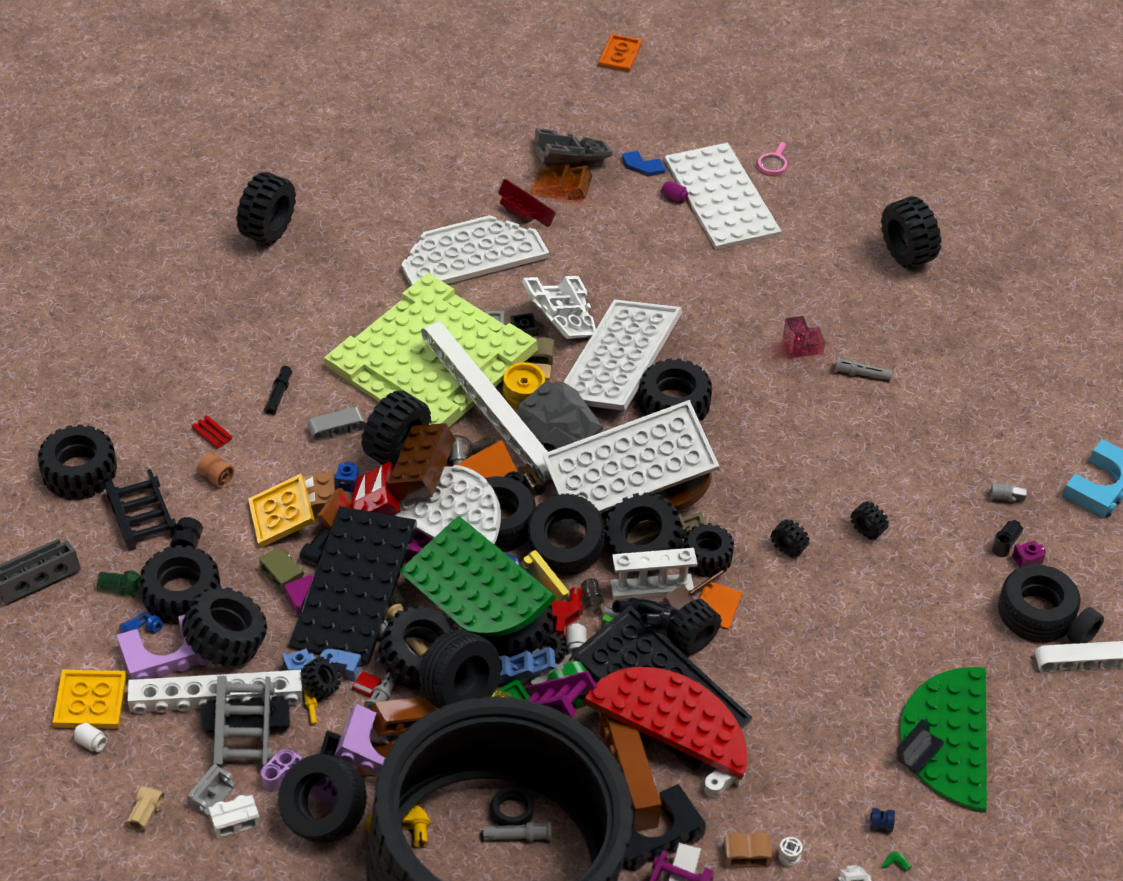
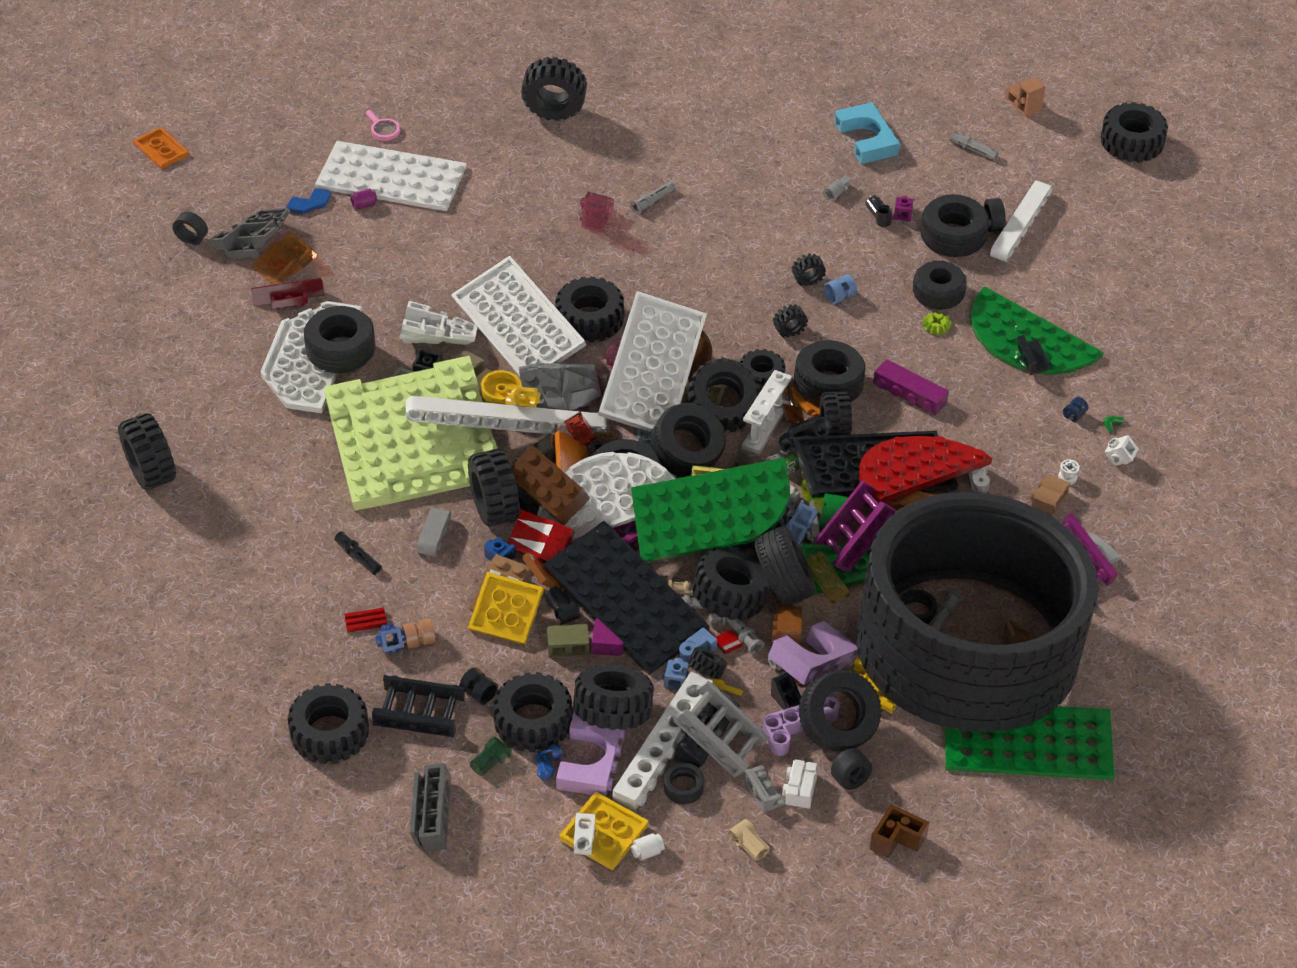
camera: 55 degrees left, 0 degrees up
(65, 683) = (584, 834): none -> white leg
(178, 743) = (680, 796): none -> black tyre
(193, 452) = (396, 642): none -> blue brick
(273, 844) = (851, 769): none -> black tyre
(487, 238) = (334, 323): none -> black tyre
(514, 395) = (522, 396): none -> yellow hips
(519, 454) = (579, 428): none -> clear red brick
(539, 111) = (193, 221): none -> black tyre
(753, 578) = (833, 357): none -> black tyre
(792, 671) = (910, 387): none -> magenta brick
(863, 555) = (840, 289): none -> medium blue wheel
(906, 660) = (935, 328): none -> lime gear
(946, 643) = (939, 285): none -> black tyre

